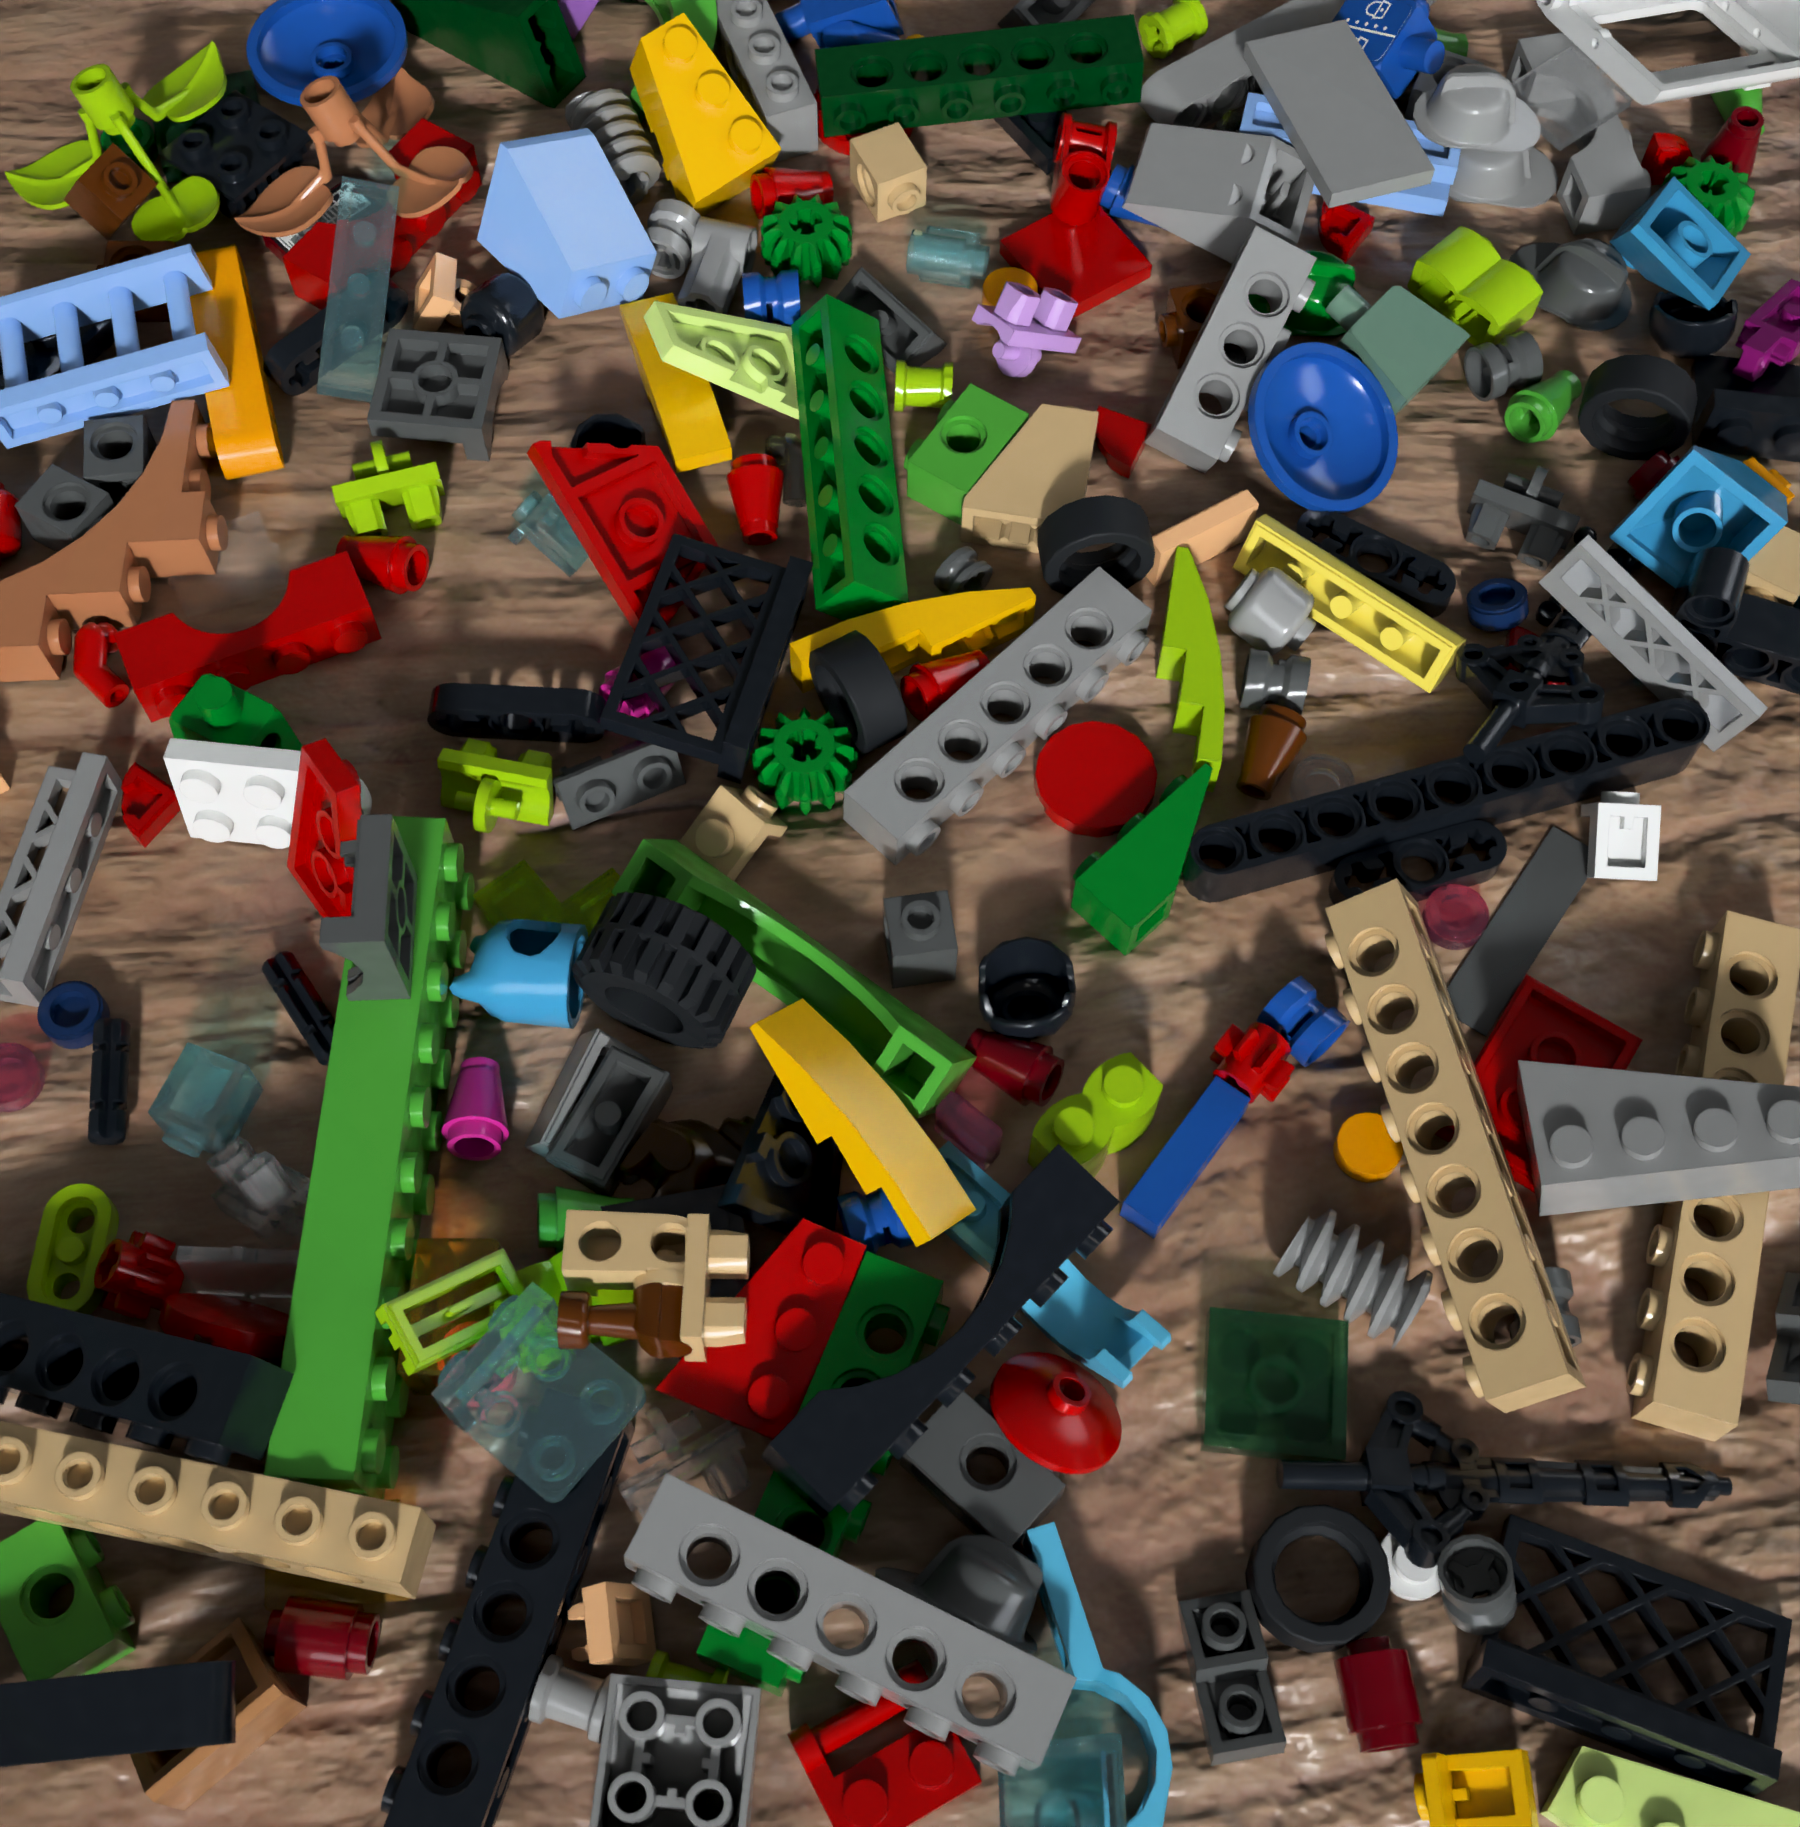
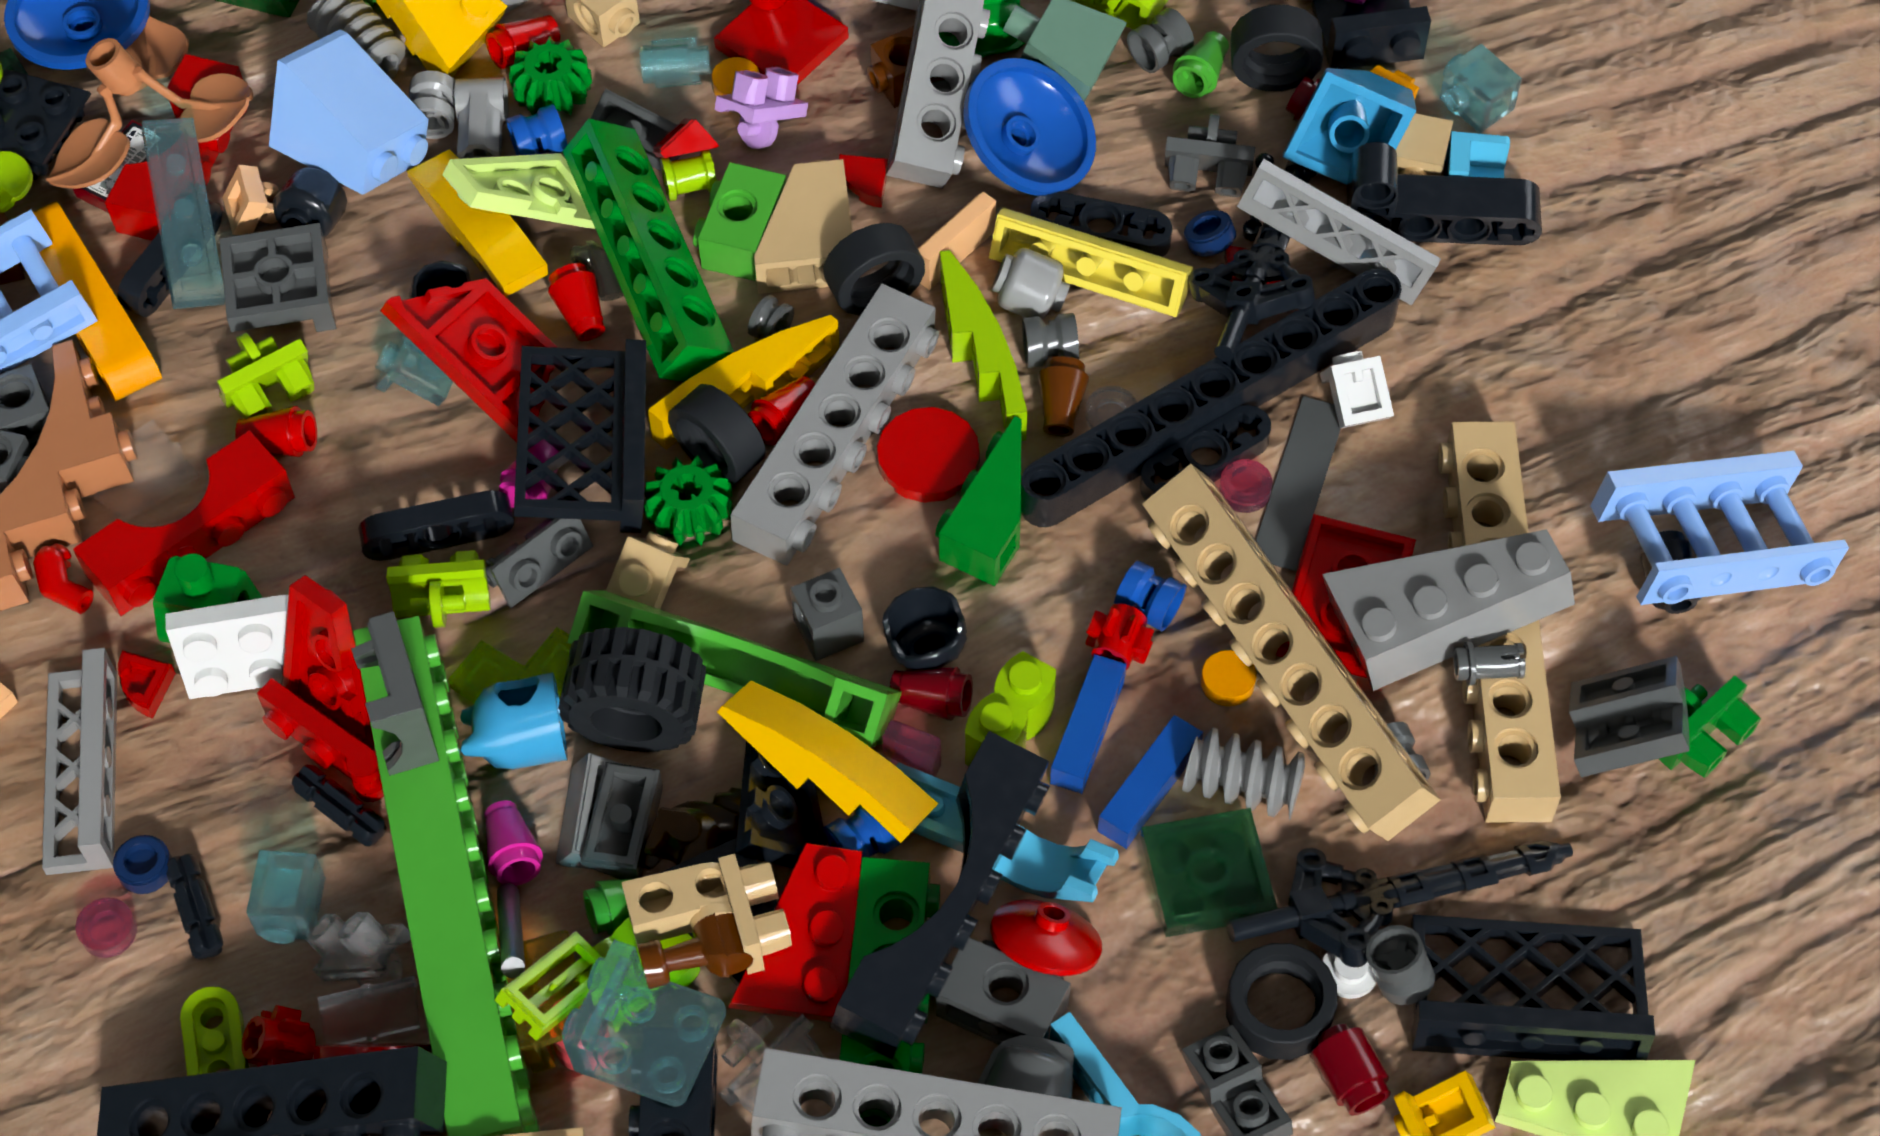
camera: 15 degrees left, 5 degrees down
(284, 890) = (322, 739): none -> red plate
(432, 1223) = (510, 930): none -> flat silver bar
(929, 345) = (685, 138): none -> red slope
(1237, 1250) = (1148, 782): none -> blue piece
(1693, 1228) = (1488, 662): none -> dark grey pin

